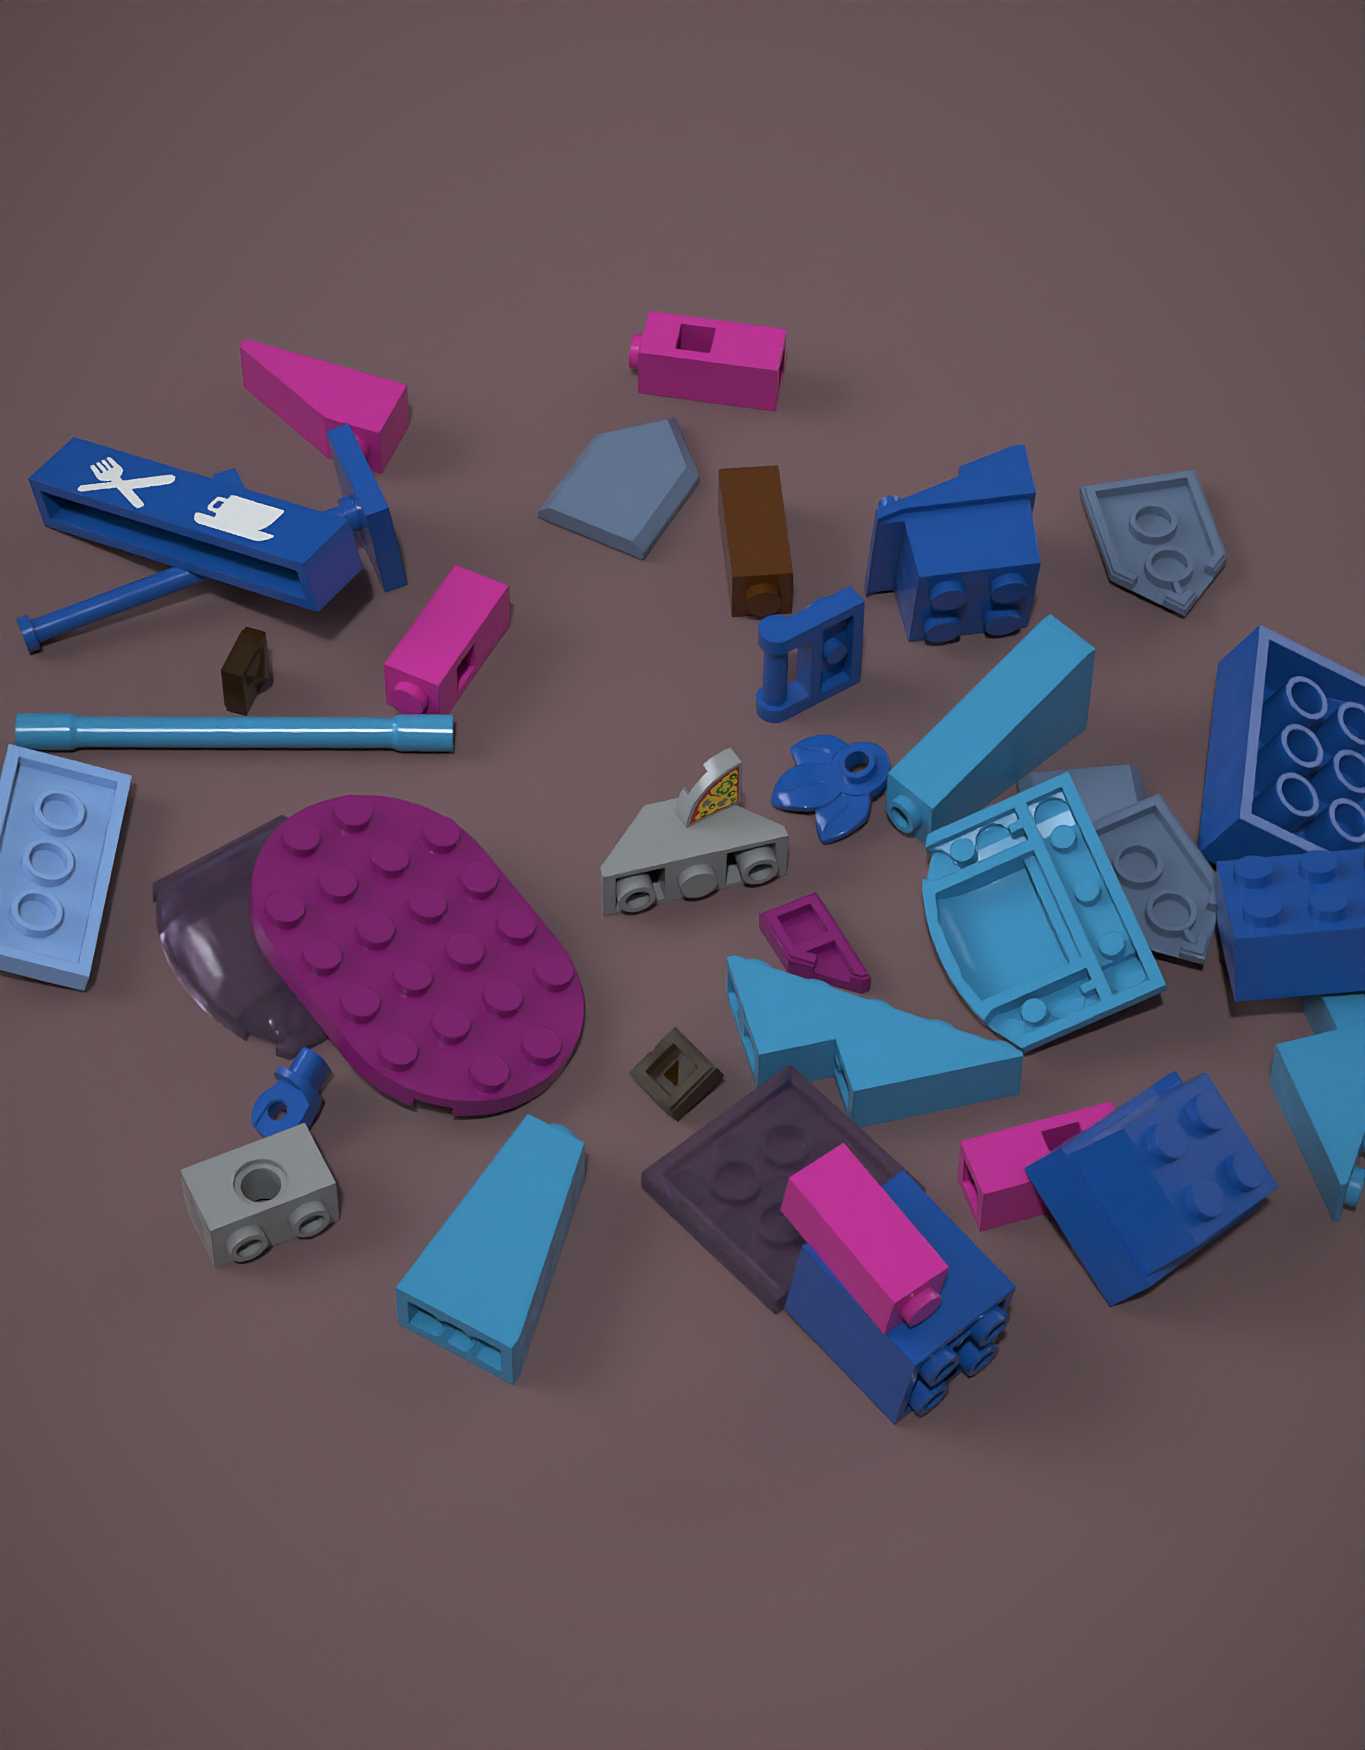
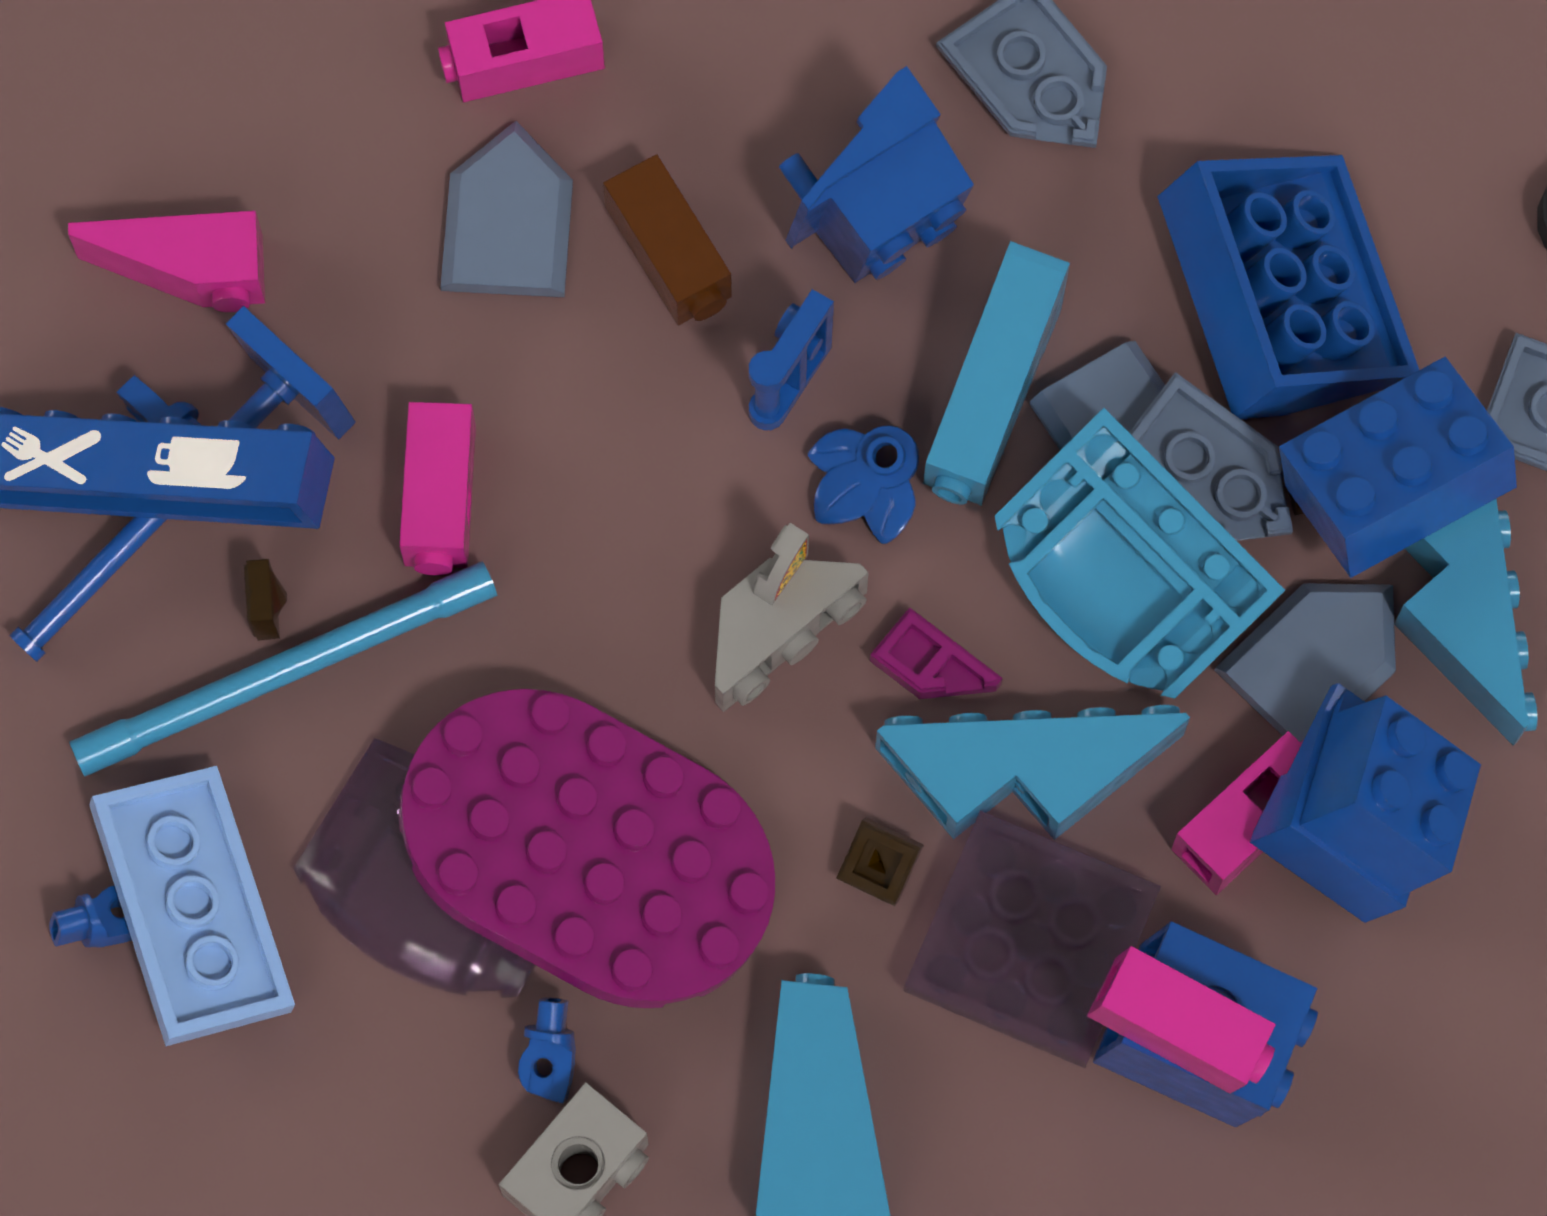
camera: 25 degrees left, 20 degrees up
(1191, 1046) = (1310, 644): none -> sand blue tile

